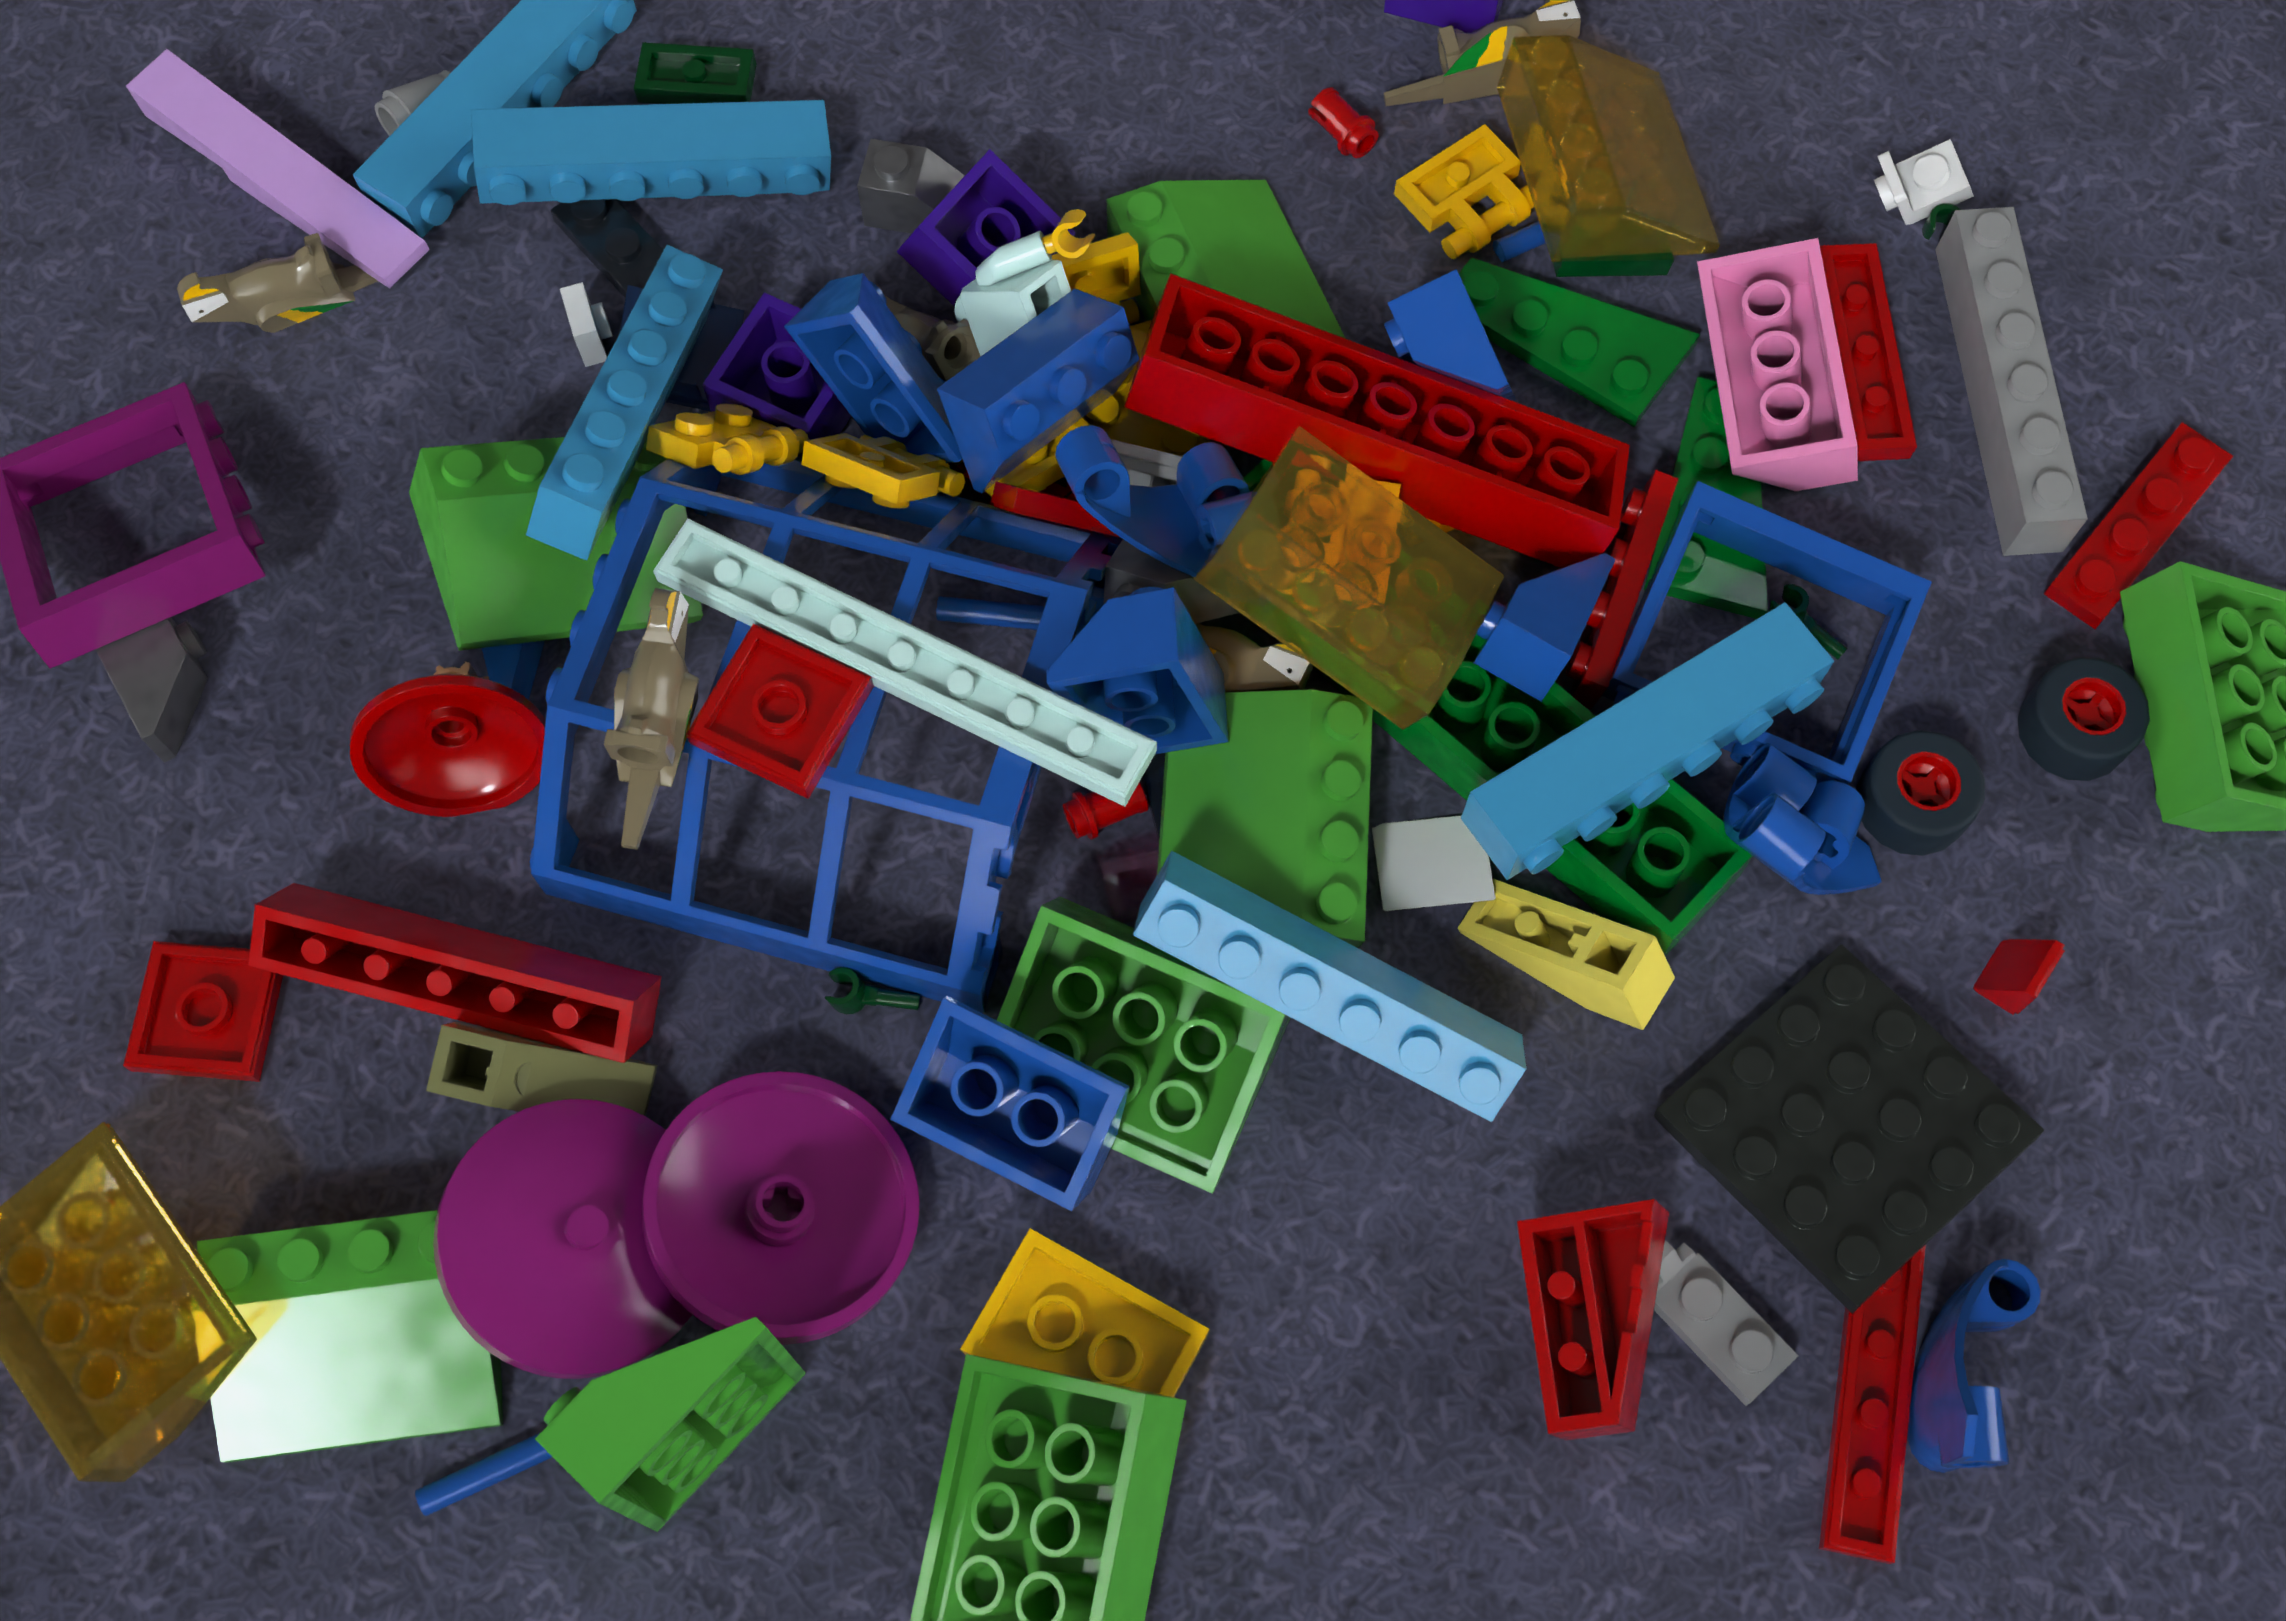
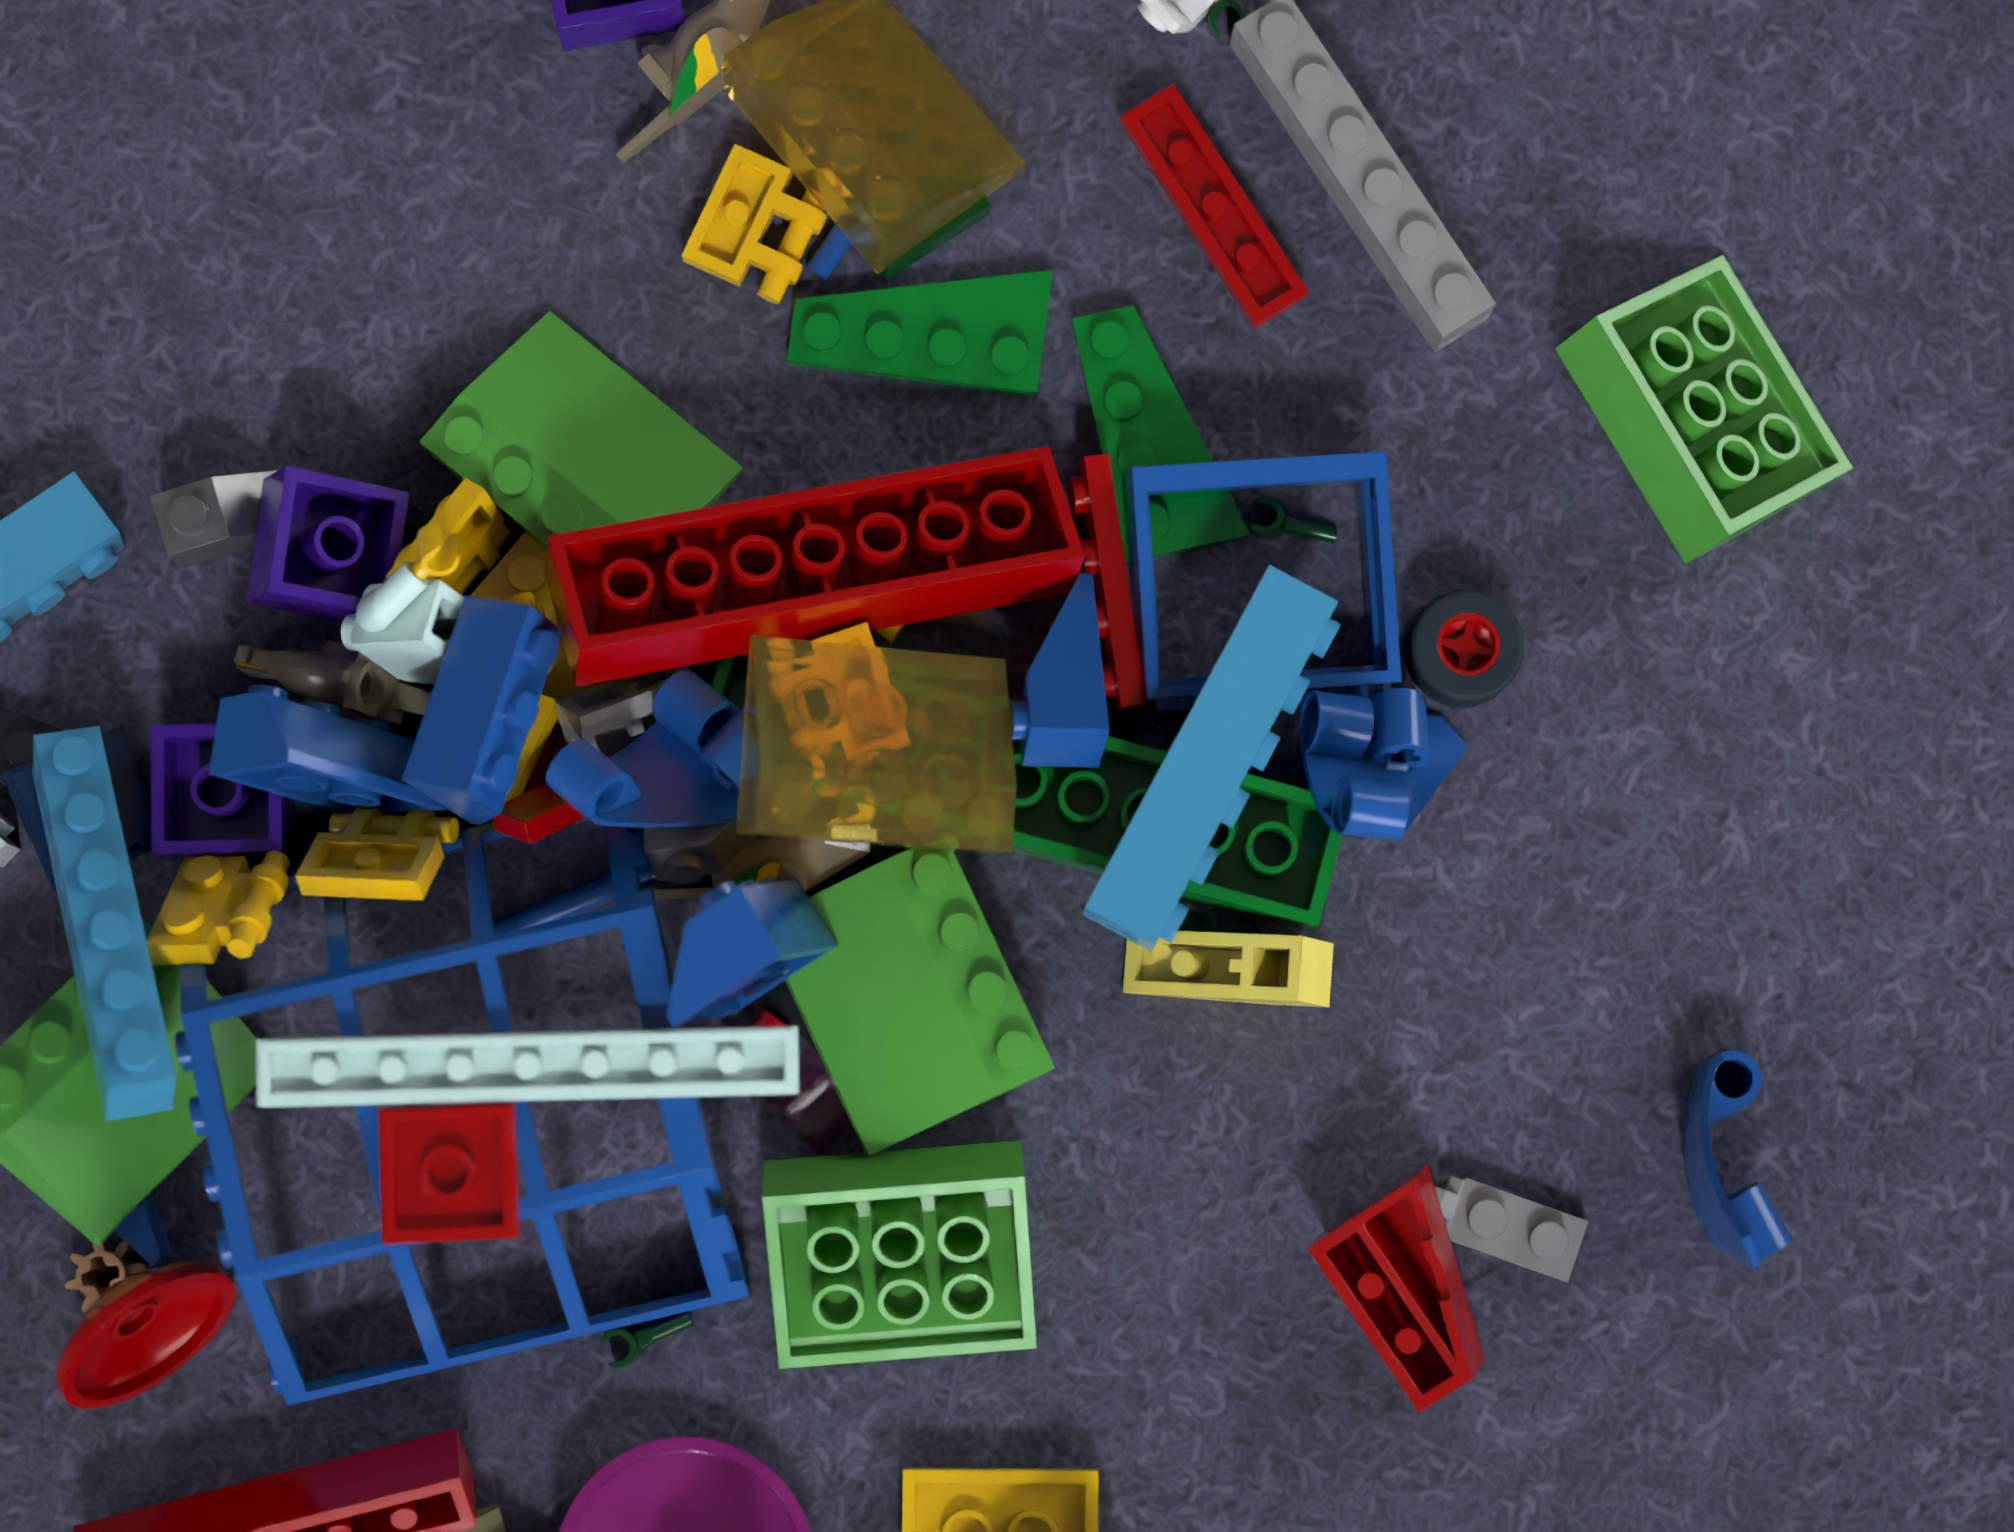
camera: 35 degrees left, 15 degrees up
(652, 711) = (342, 1242): dark tan animal -> none
(1012, 1104) = (832, 1386): blue slope -> none
(1331, 986) = (1047, 1131): brick -> none
(1344, 123) = (594, 209): red pin -> none
(1430, 864) = (1063, 948): white sticker -> none
(1444, 334) = (837, 437): blue slope -> none
(1779, 367) = (1142, 278): bright pink slope -> none
(1847, 1126) = (1538, 995): pearl dark grey plate -> none
(1872, 1419) = (1649, 1174): red tile -> none
(2018, 972) = (1621, 774): red slope -> none
(2107, 716) = (1584, 475): black wheel -> none
(2138, 525) = (1543, 258): red plate -> none

